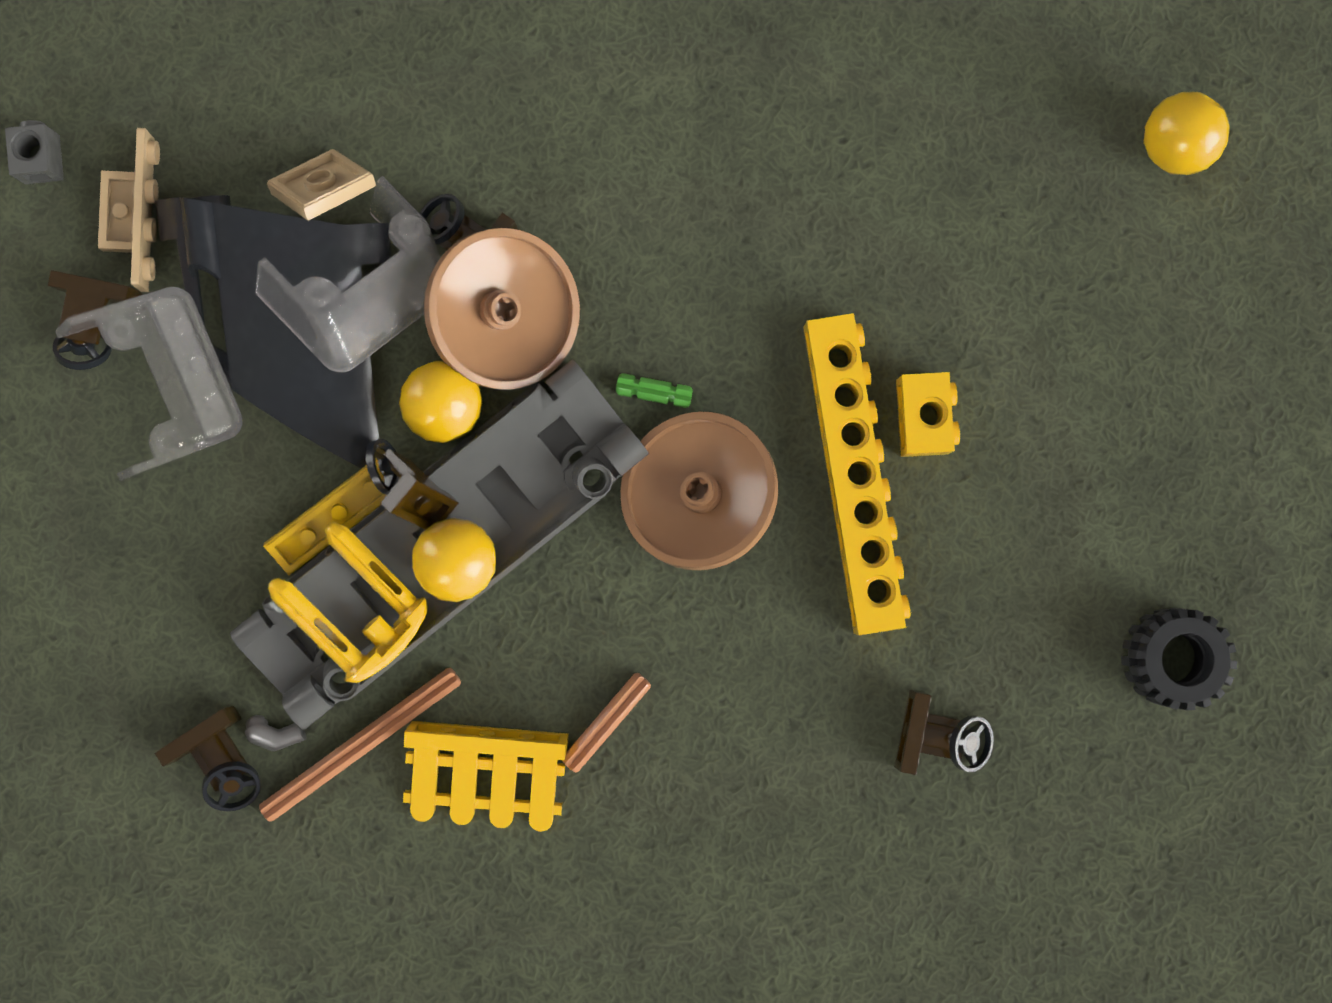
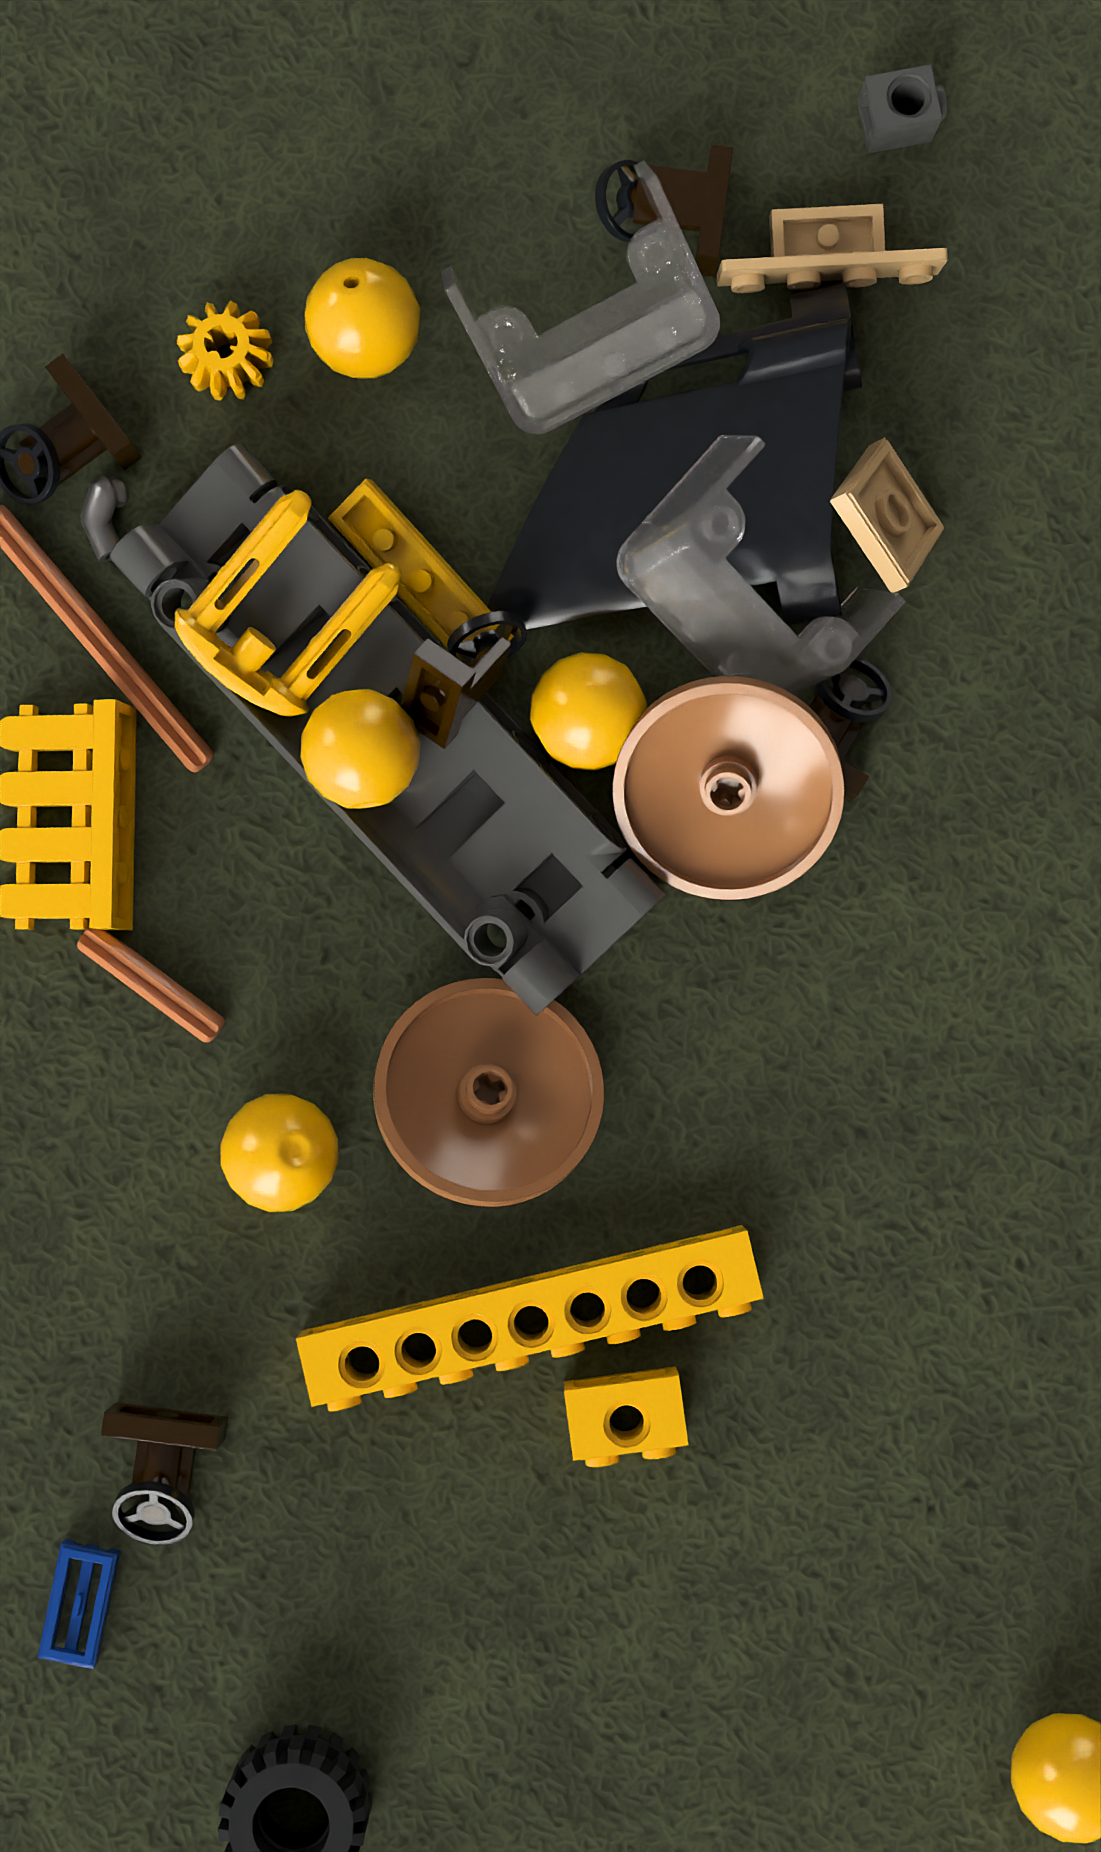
camera: 85 degrees right, 0 degrees up
(148, 539) = (362, 318): none -> yellow piece
(170, 652) = (246, 343): none -> yellow gear
(654, 390) = (631, 1015): bright green axle -> none
(730, 638) = (279, 1152): none -> yellow piece
(997, 791) = (89, 1555): none -> blue tile

